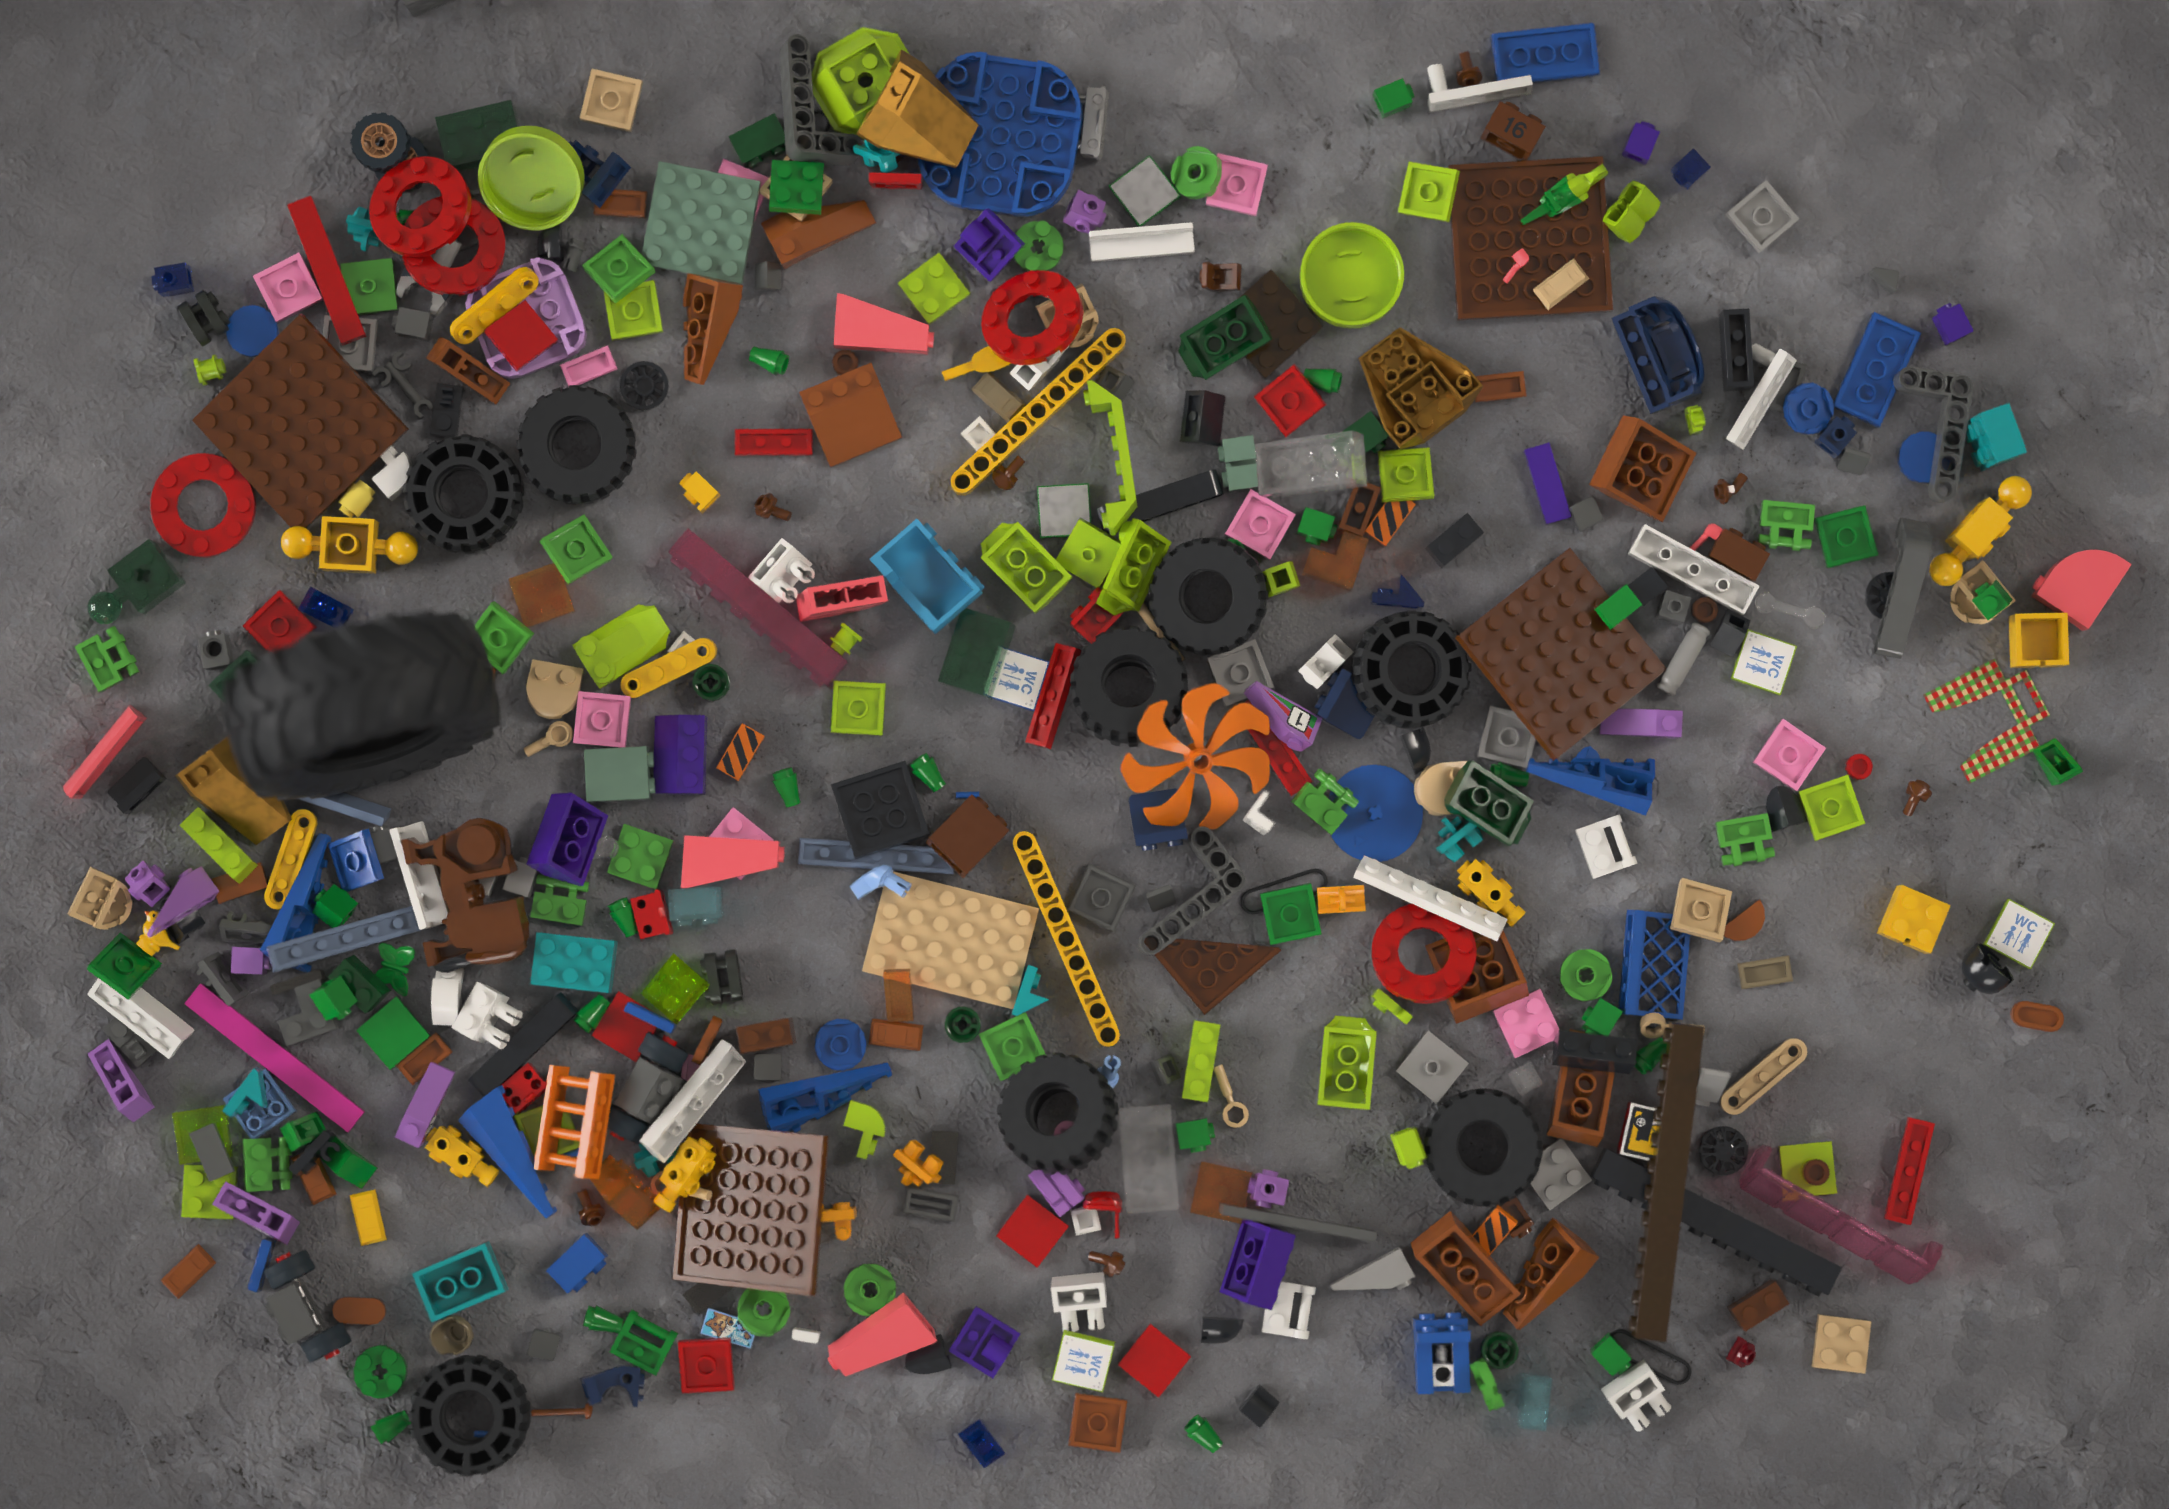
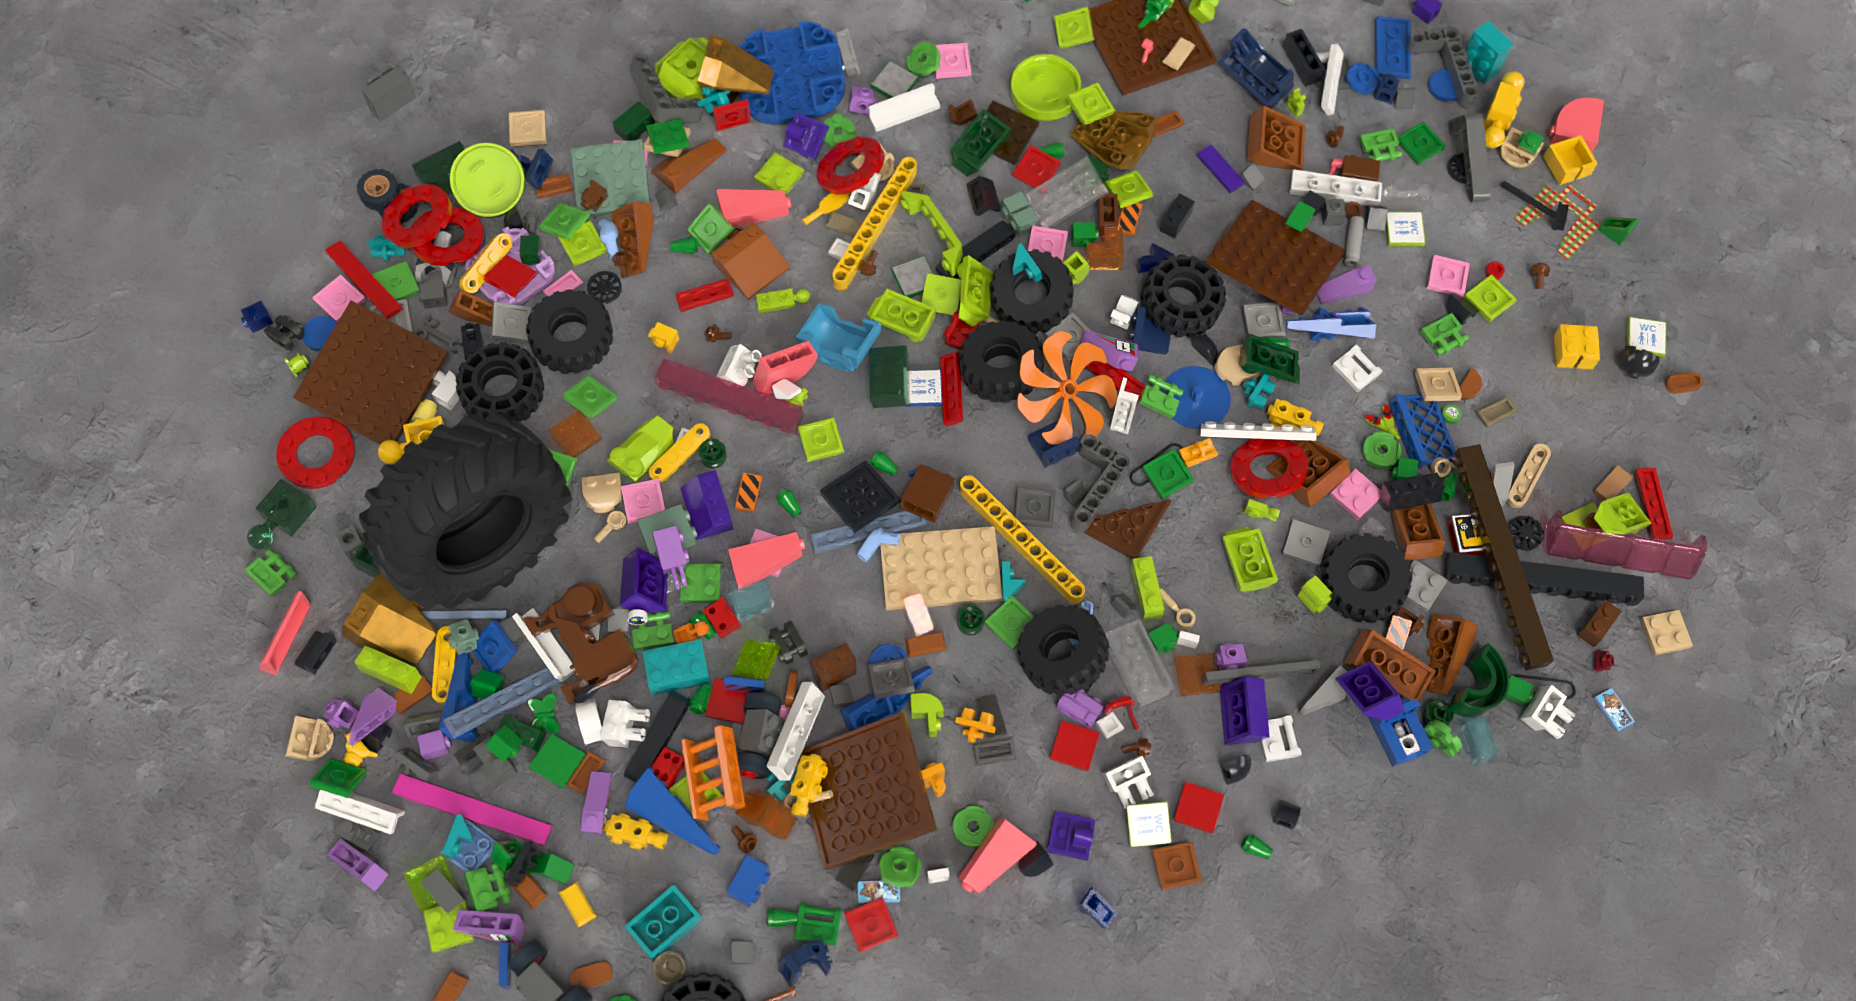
camera: 20 degrees left, 20 degrees down
(324, 829) = (462, 637): none -> sand green brick
(503, 402) = (510, 322): none -> light grey plate
(544, 883) = (637, 617): none -> white tile
(559, 305) = (530, 249): none -> dark green brick
(601, 926) = (688, 633): none -> orange plate
(609, 818) = (671, 554): none -> medium lavender brick
(666, 251) = (593, 196): none -> reddish brown brick
(672, 313) = (608, 235): none -> light blue arm
(677, 355) = (621, 259): none -> reddish brown plate
(811, 348) = (710, 228): none -> bright green plate
(831, 632) = (785, 389): none -> white slope
(833, 1073) = (891, 678): none -> flat silver plate
(873, 485) = (781, 300): none -> lime plate
(1206, 559) = (1024, 262): none -> teal slope
(1226, 1145) = (1188, 639): none -> white tile
(1401, 329) = (1090, 104): none -> lime tile
(1412, 1306) = (1371, 692): none -> dark purple slope
(1579, 1342) = (1492, 685): none -> dark green brick
(1610, 939) = (1386, 424): none -> piece
(1702, 954) = (1451, 414): none -> tile
(1725, 1418) = (1614, 710): none -> tile
(1849, 1181) = (1621, 515): none -> lime slope
(1870, 1125) = (1613, 483): none -> medium nougat tile
(1982, 721) = (1560, 215): none -> black piece

